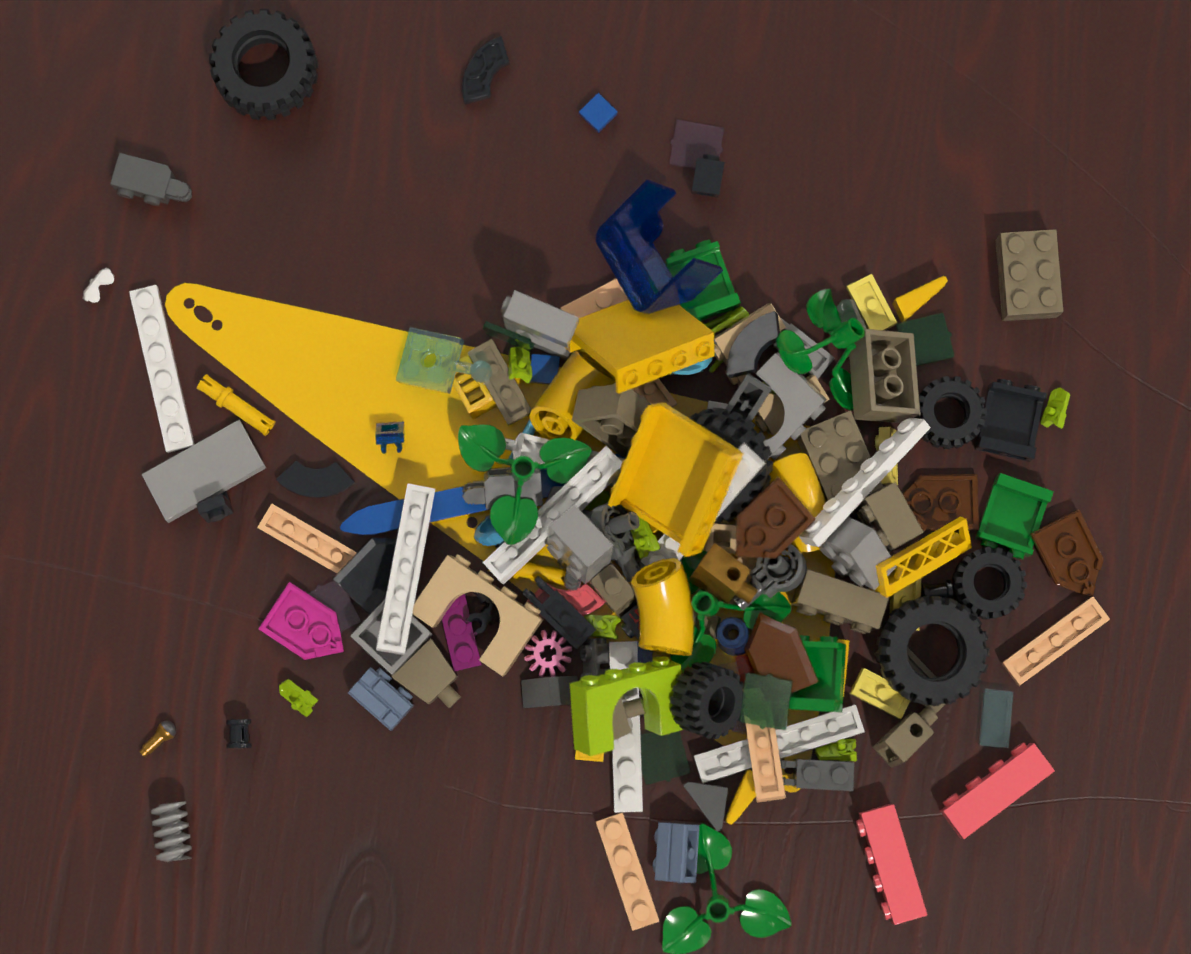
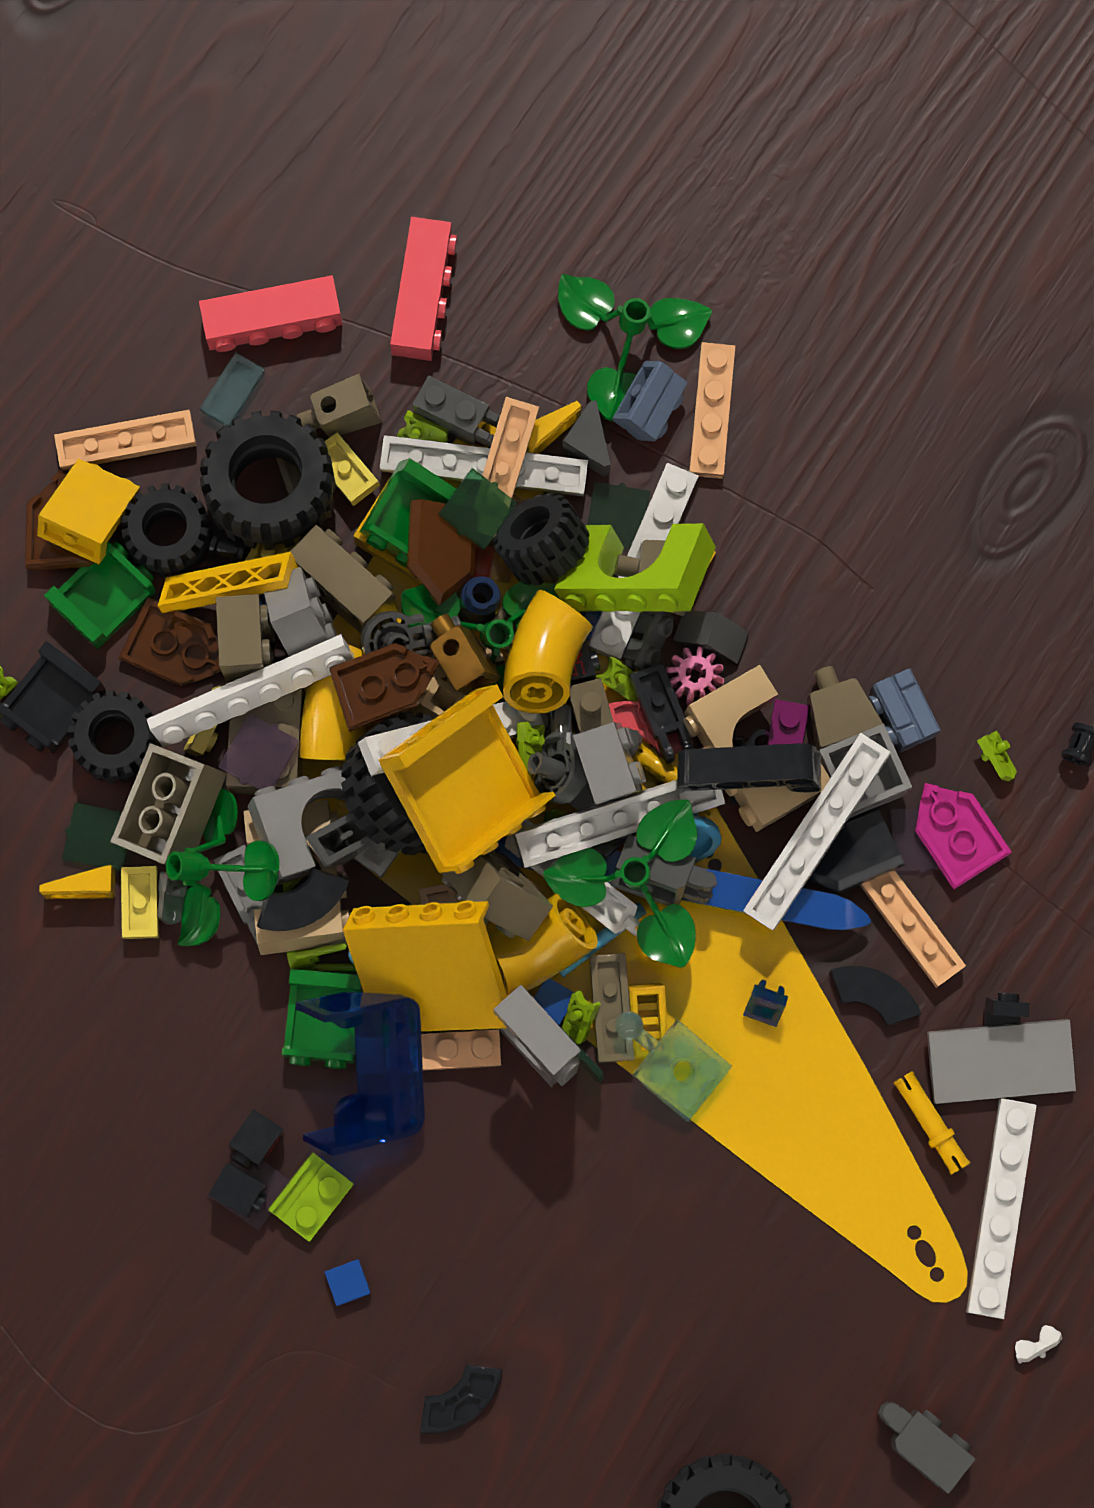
camera: 160 degrees left, 5 degrees down
(474, 587) = (750, 767): none -> black beam
(651, 156) = (310, 1196): none -> lime plate
(702, 136) = (239, 1191): none -> black brick
(837, 441) = (259, 753): none -> piece
(1054, 570) = (86, 510): none -> yellow panel

